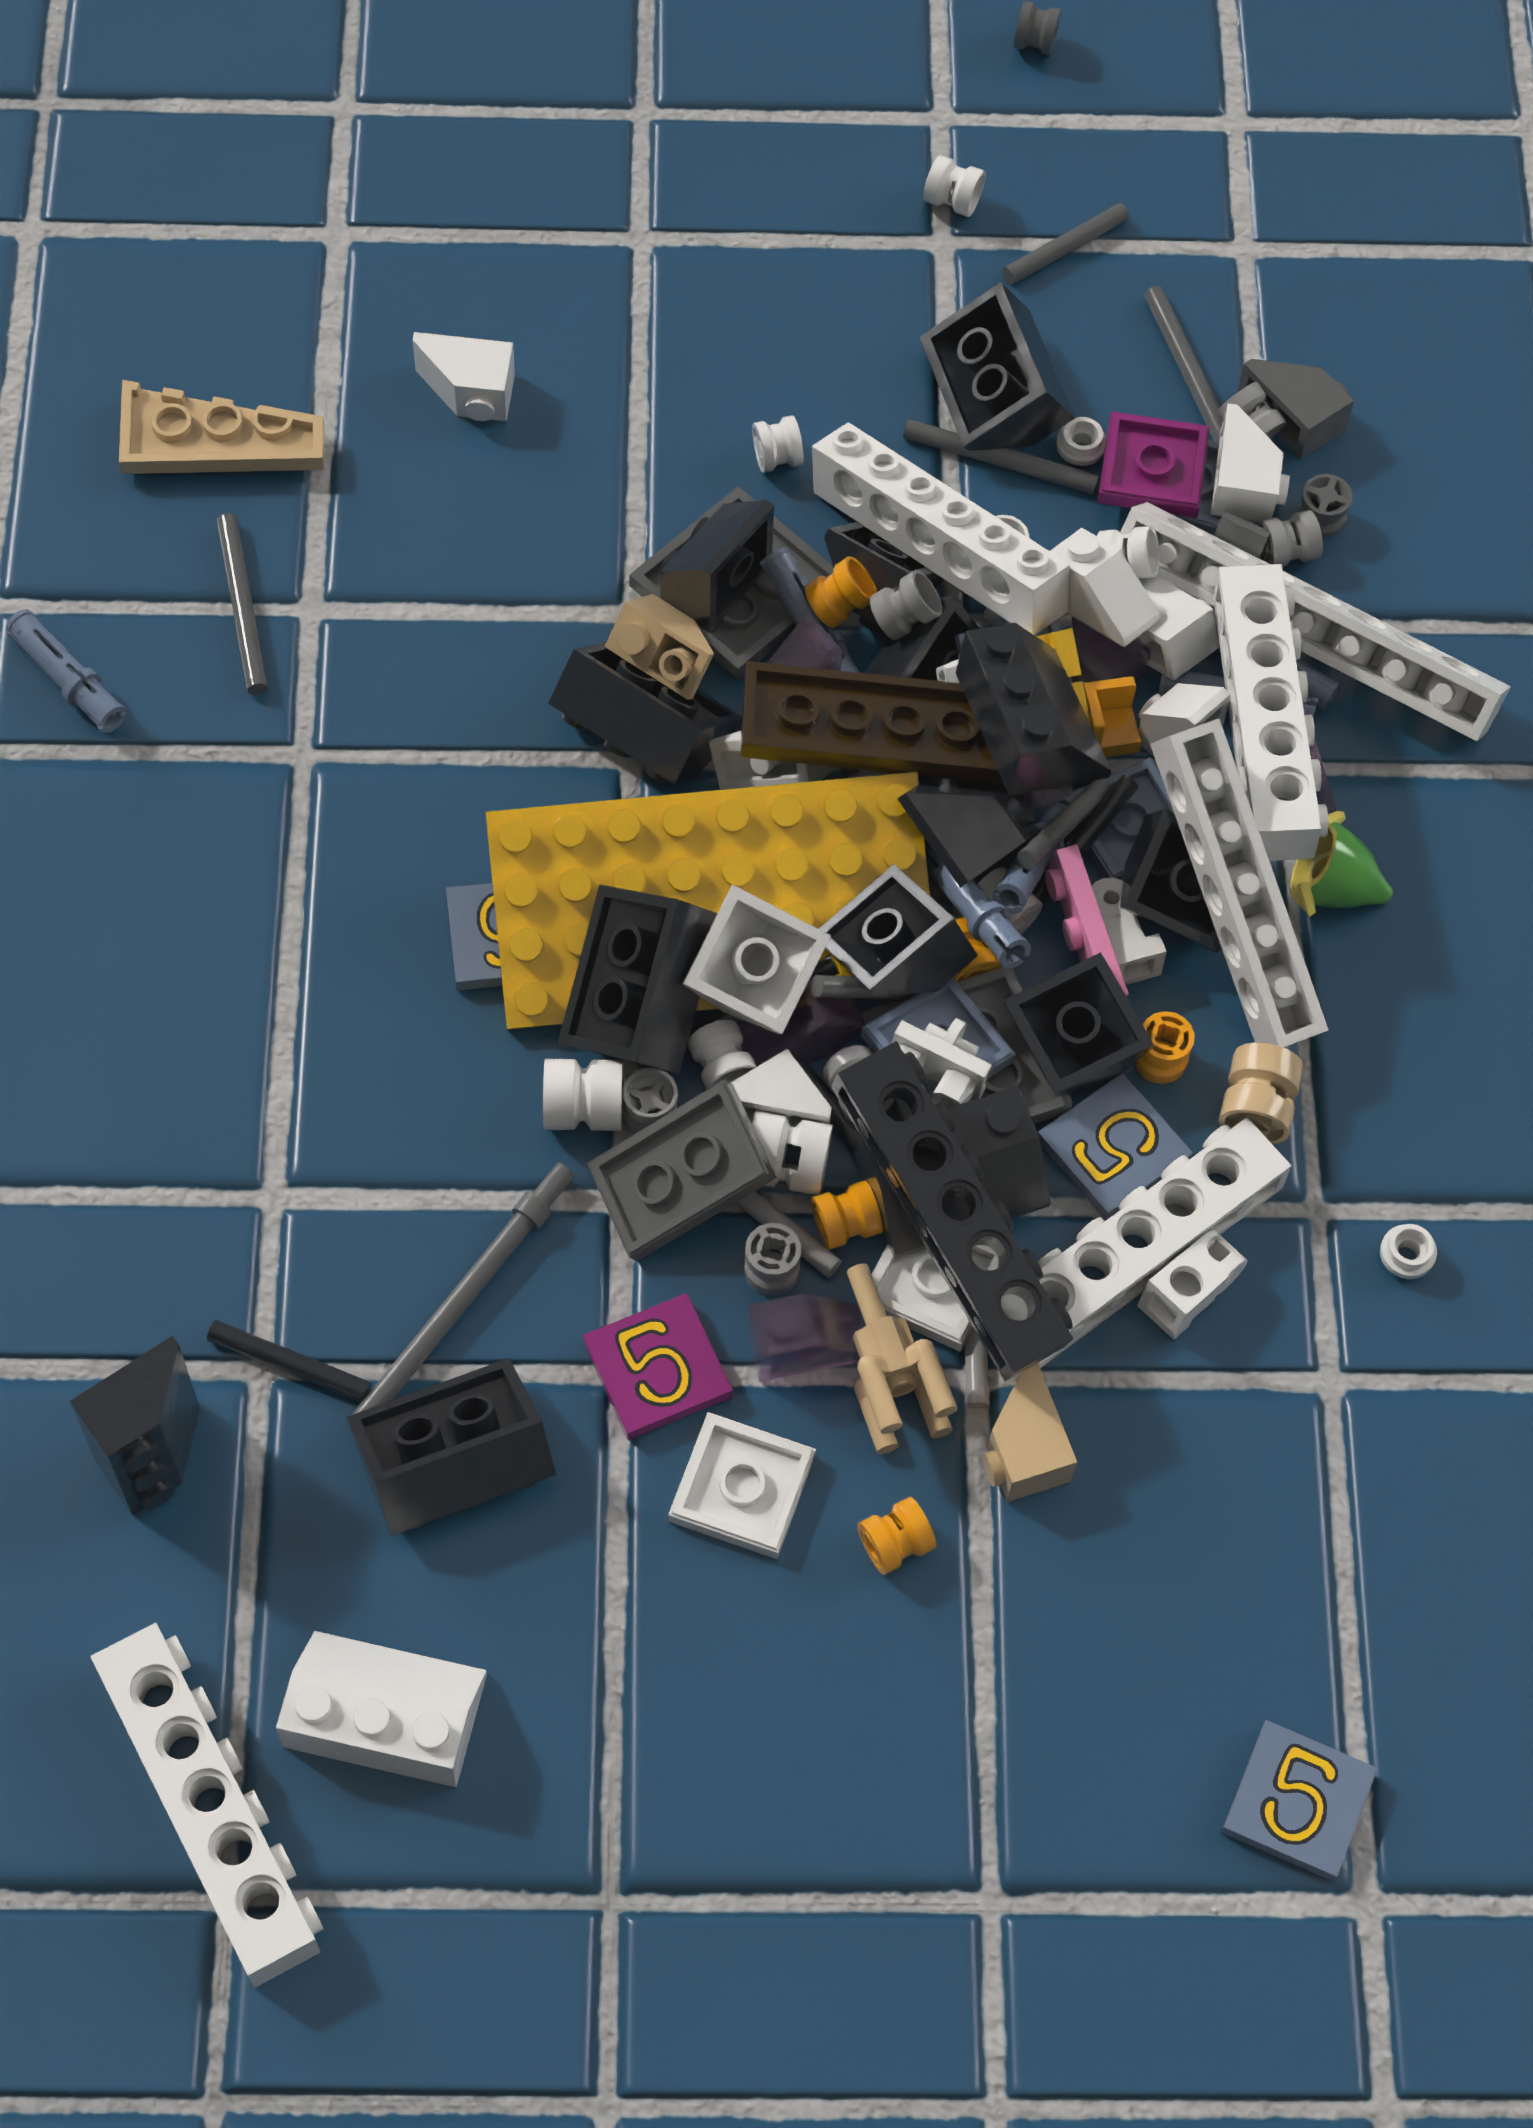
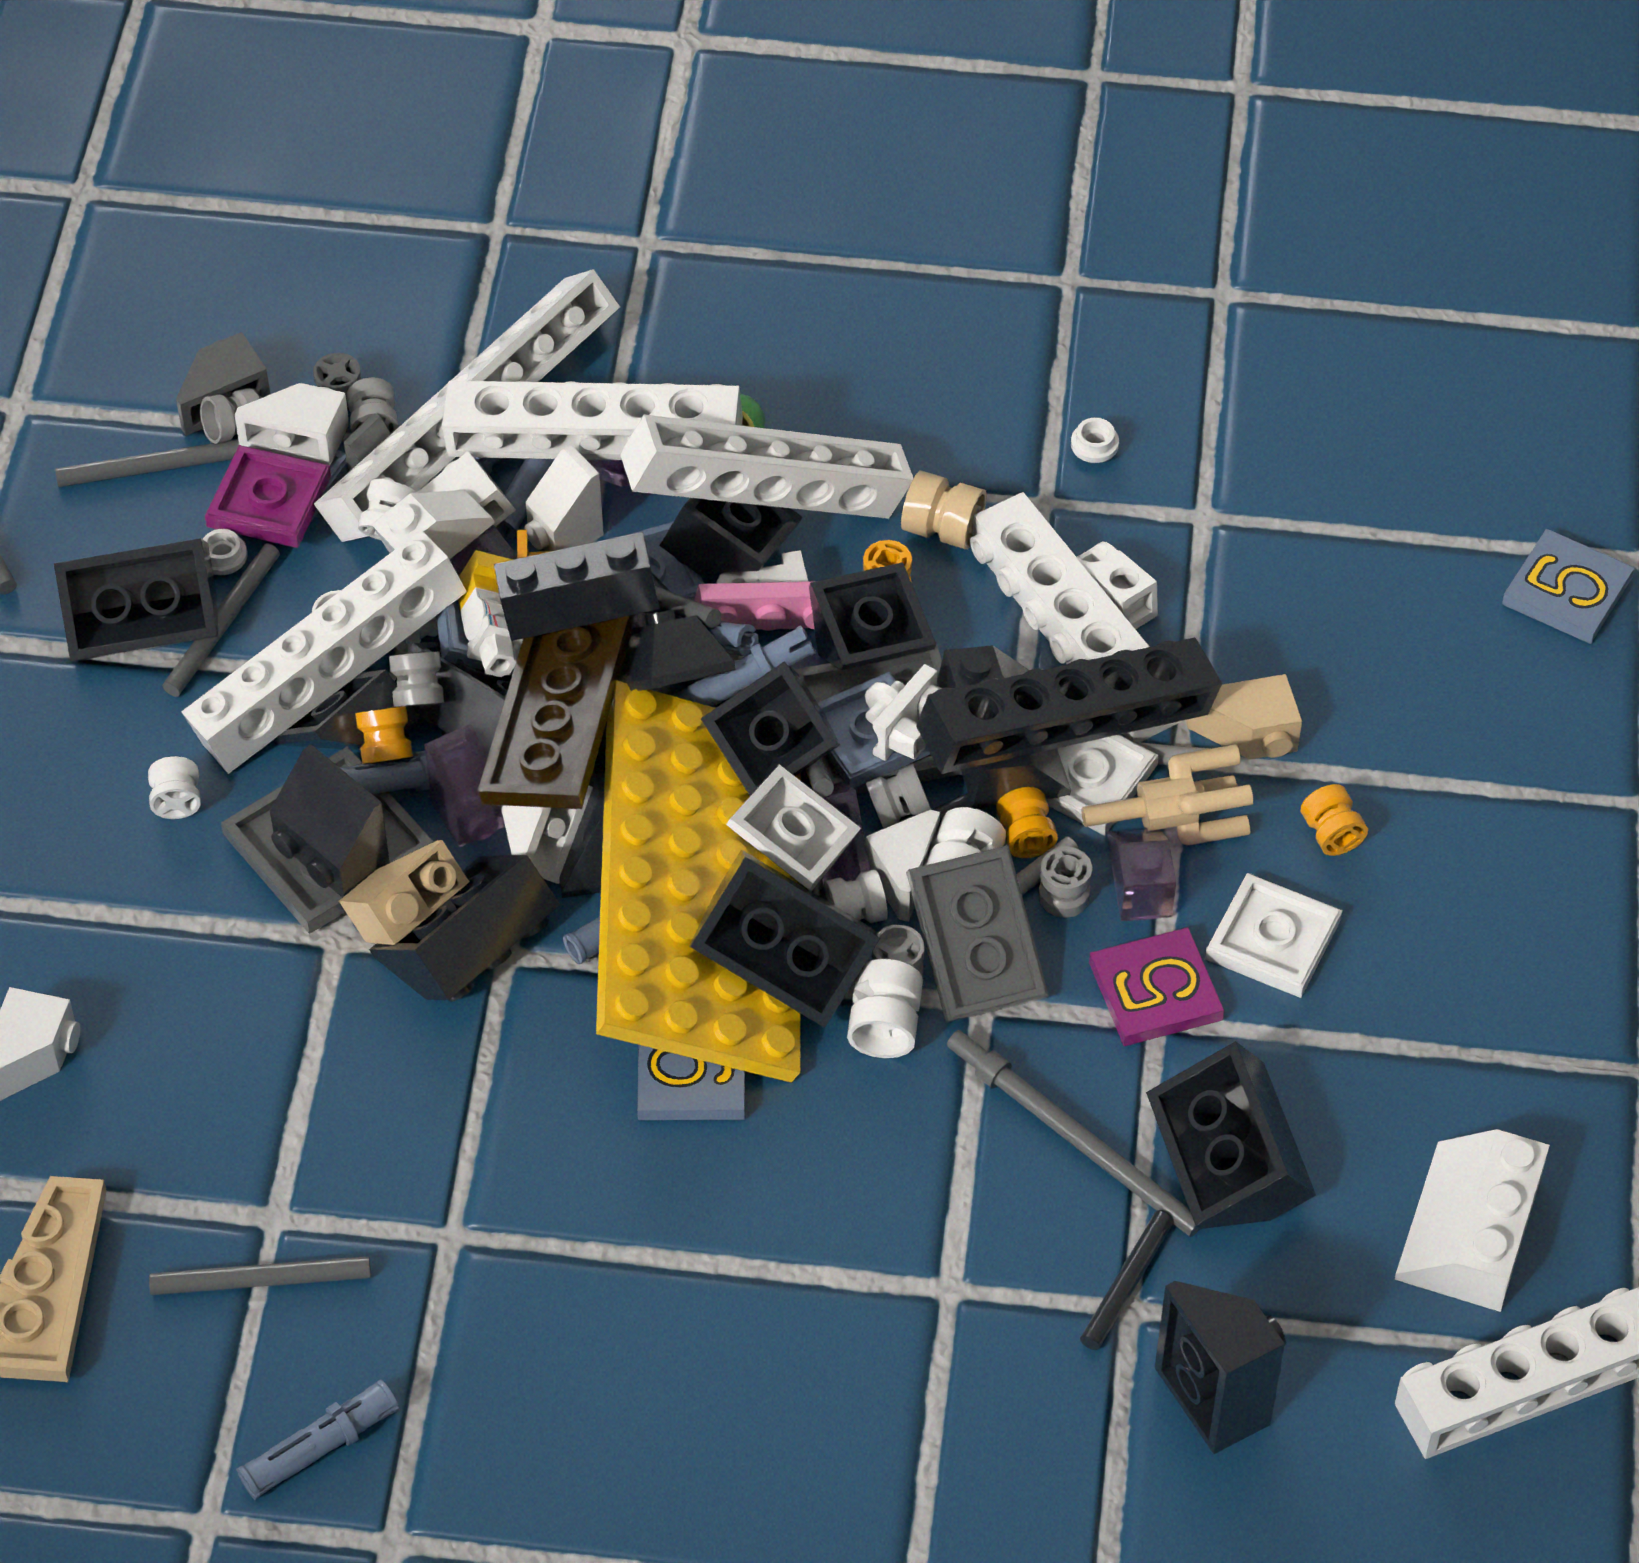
camera: 80 degrees left, 10 degrees down
(1112, 1144) = (978, 616): sand blue tile -> none

